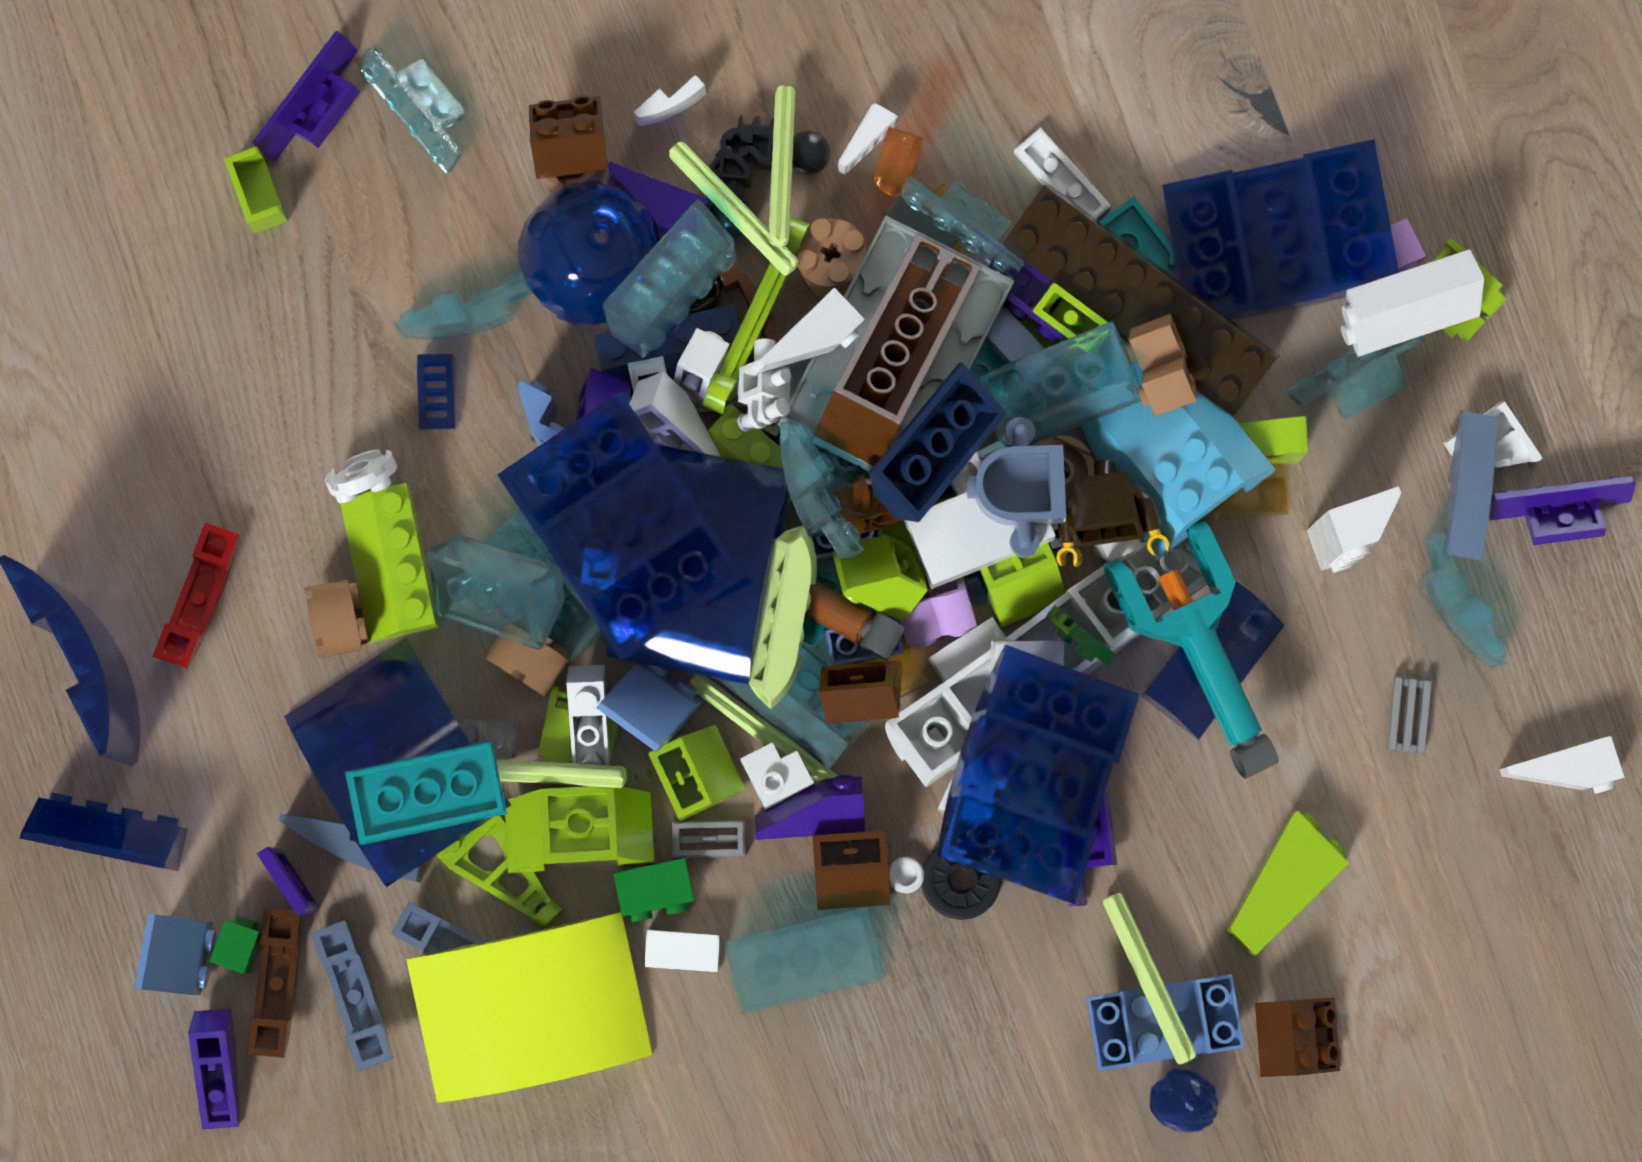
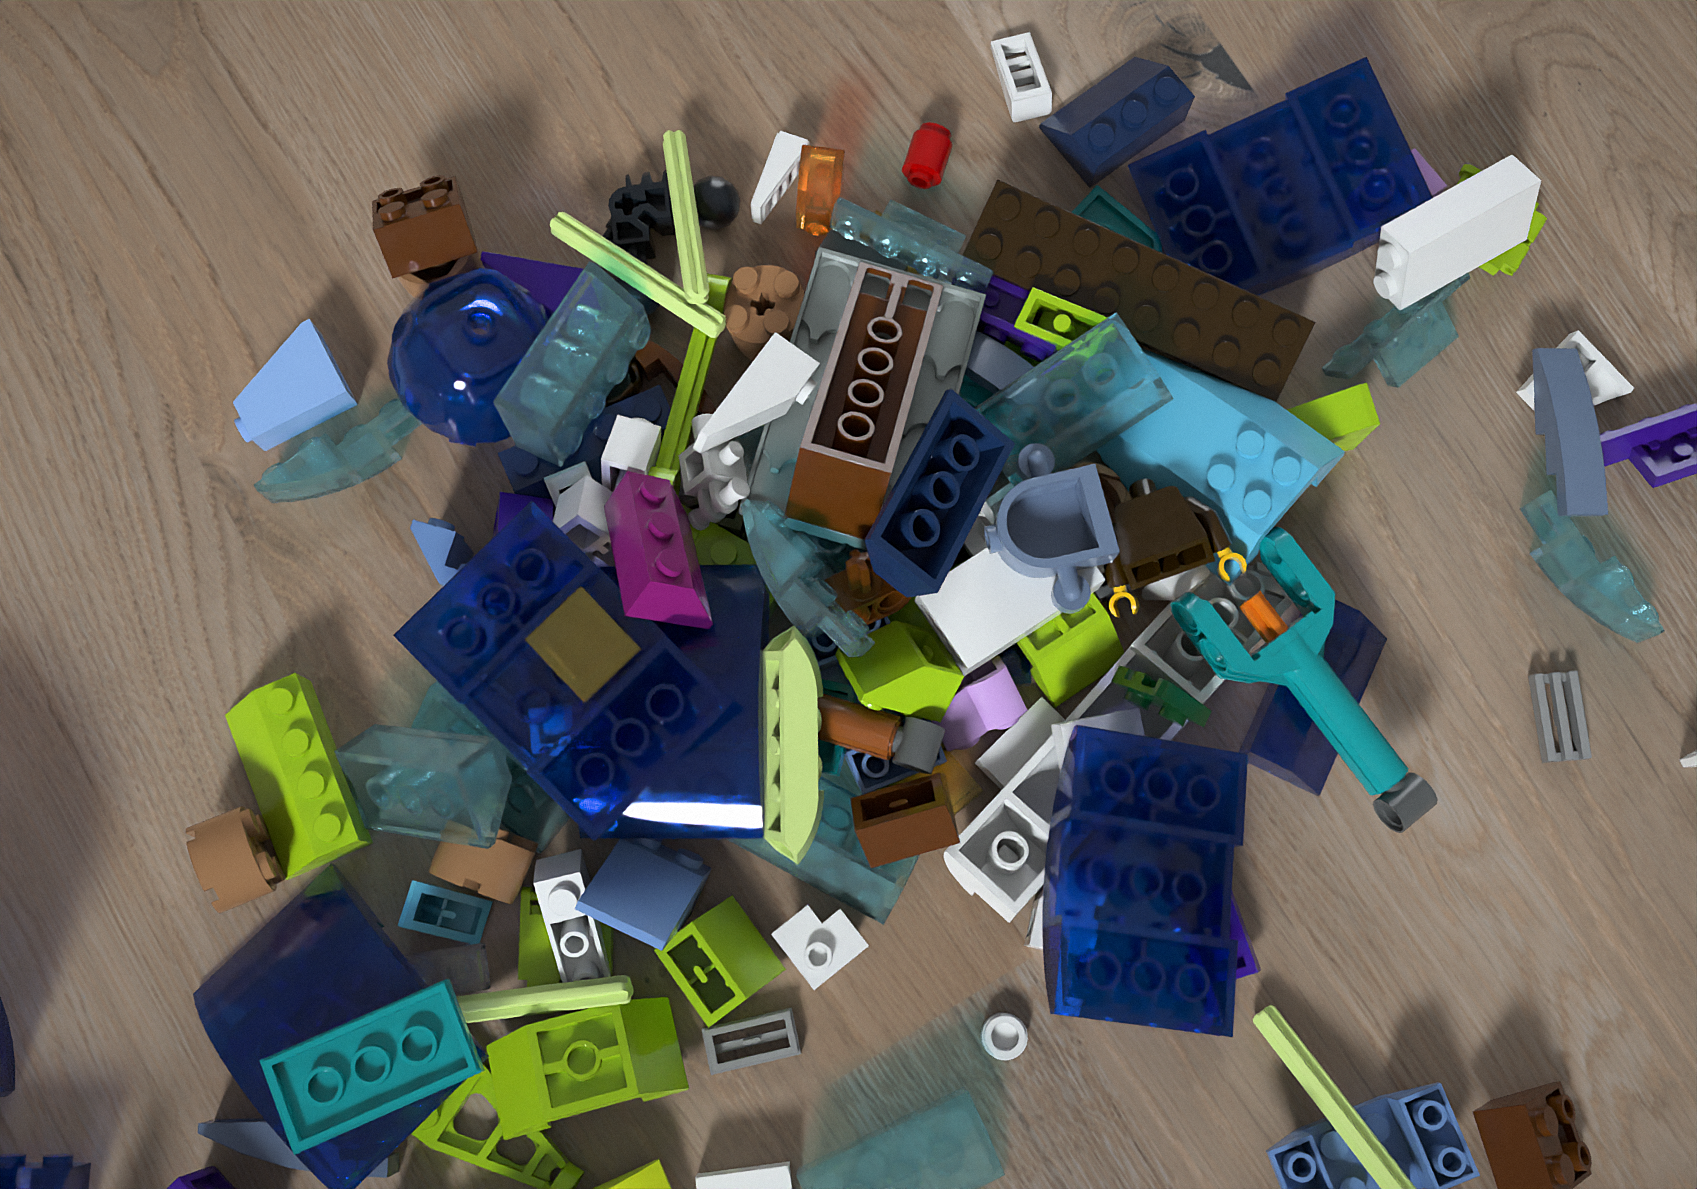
camera: 15 degrees left, 5 degrees down
(198, 597) = (63, 867): red slope -> none
(255, 189) = (65, 363): lime panel -> none
(314, 101) = (119, 252): dark purple bracket -> none
(361, 473) = (245, 669): white plate -> none
(419, 102) = (249, 231): clear light blue bracket -> none
(423, 377) = (316, 521): clear blue slope -> none
(436, 248) = (293, 391): none -> light blue slope
(490, 693) = (444, 912): none -> medium azure slope
(639, 509) = (583, 644): none -> clear yellow piece
(654, 889) = (695, 1121): green brick -> none
(661, 107) = (533, 185): white slope -> none
(707, 447) = (655, 553): none -> magenta slope
(756, 725) = (791, 890): yellowish green axle -> none
(821, 809) = (883, 977): dark purple slope -> none
(851, 870) = (937, 1045): reddish brown slope -> none
(954, 902) = (1066, 1058): black wheel -> none
(995, 144) = (927, 155): none -> red brick
(1054, 168) = (986, 162): white tile -> none
(1095, 108) = (1028, 100): none -> white slope
(1162, 358) = (1187, 354): medium nougat brick -> none
(1163, 140) = (1118, 118): none -> dark blue slope
(1263, 500) = (1327, 500): clear yellow slope -> none
(1286, 882) = (1469, 951): lime slope -> none
(1350, 530) = (1459, 505): white slope -> none

